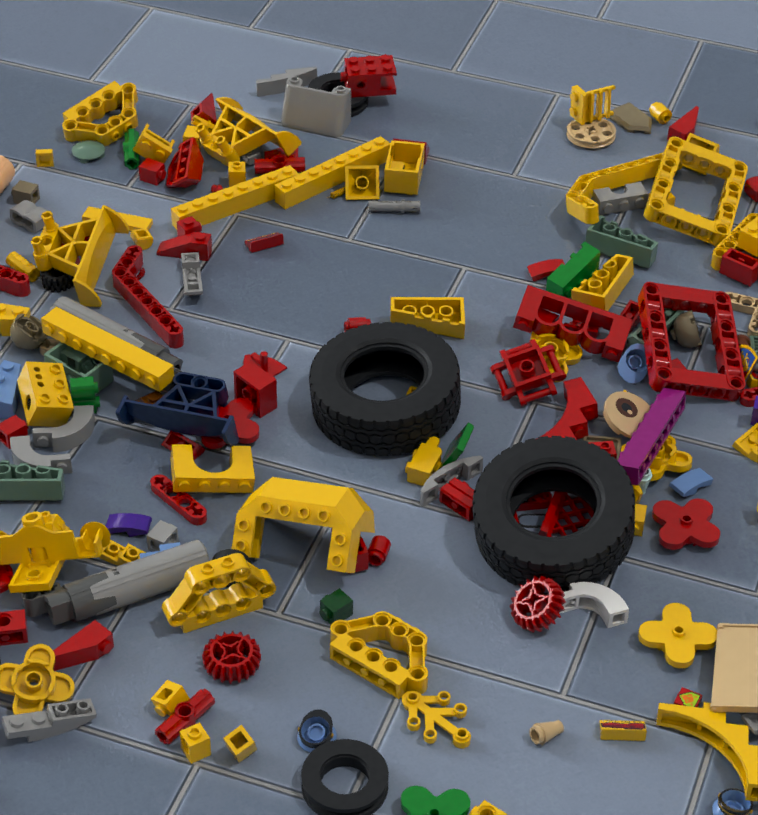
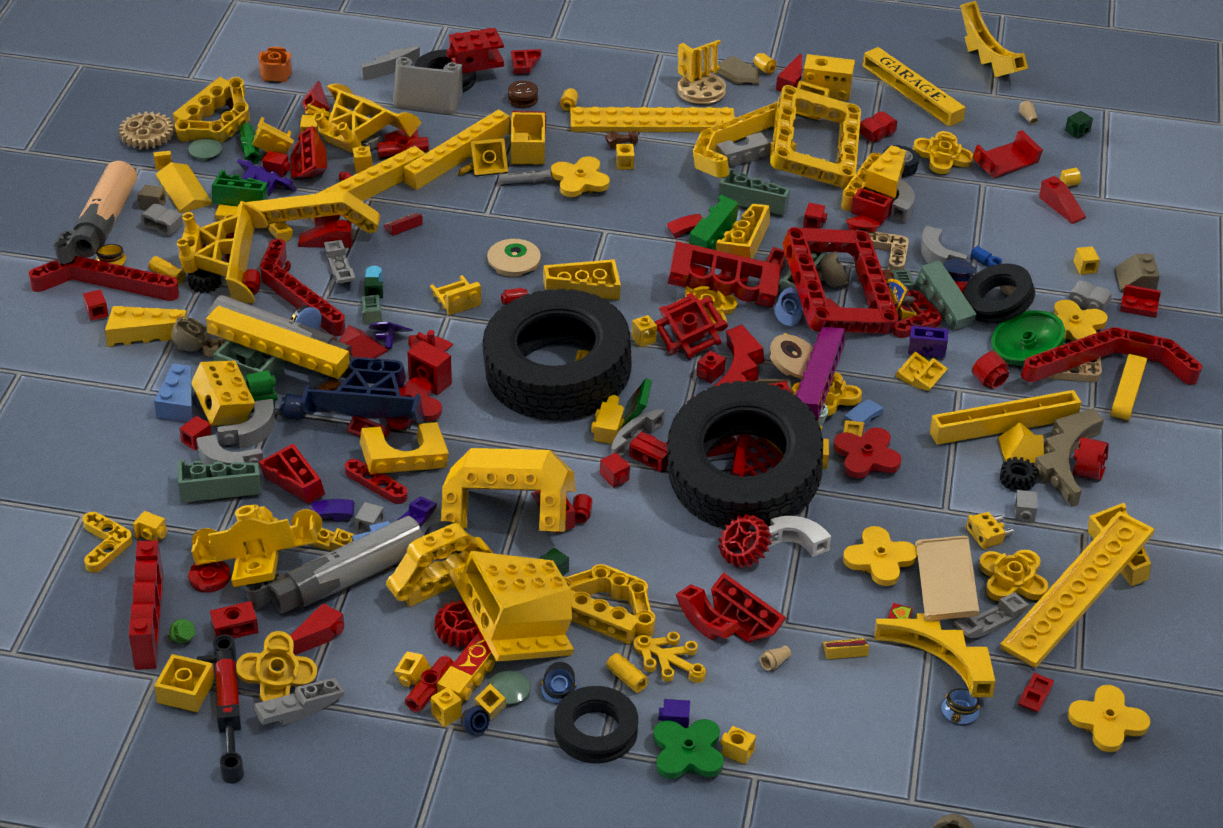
camera: 10 degrees left, 0 degrees up
(35, 127) = (146, 130): none -> tan gear
(58, 186) = (183, 187): none -> yellow slope
(96, 483) = (293, 473): none -> red wedge
(102, 284) = (252, 279): none -> red brick
(103, 191) = (233, 189): none -> green wedge
(108, 415) = (291, 406): none -> dark blue head
(135, 186) = (261, 174): none -> dark purple bracket
(146, 326) = (308, 316): none -> medium blue piece
(173, 73) = (275, 64): none -> orange brick
(180, 216) = (319, 205): none -> yellow beam
(195, 358) = (362, 343): none -> red slope
(213, 325) = (371, 309): none -> sand green slope
(215, 535) = (420, 510): none -> dark purple slope
(220, 298) = (373, 281): none -> dark green leg
(222, 761) = (475, 720): none -> dark blue cone
(225, 345) = (390, 328): none -> dark purple shield
(232, 702) = (468, 669): none -> yellow brick
(266, 729) = (512, 686): none -> sand green dish
(287, 645) = (517, 604): none -> yellow wedge
(302, 319) = (458, 295): none -> yellow plate
(366, 285) = (513, 257): none -> tan tile
(388, 729) = (627, 672): none -> yellow axle
(410, 123) = (523, 94): none -> reddish brown head
(419, 89) = (524, 60): none -> red wing
(420, 513) = (614, 469): none -> red brick
(429, 777) = (675, 711): none -> dark purple brick
(449, 210) = (580, 177): none -> yellow plant
(455, 132) = (569, 99): none -> yellow brick
(479, 676) = (702, 614): none -> red arch
(480, 373) = (644, 331): none -> yellow brick
(492, 176) = (614, 138): none -> reddish brown leg
(498, 194) = (624, 156): none -> yellow brick
(522, 677) = (754, 615): none -> red wedge
(530, 158) = (647, 119): none -> yellow plate
(541, 417) = (711, 366): none -> red brick
(677, 496) = (854, 427): none -> yellow plate
(680, 272) = (814, 216): none -> red brick
(723, 128) = (830, 74): none -> yellow piece
(728, 283) = (863, 222): none -> red dish

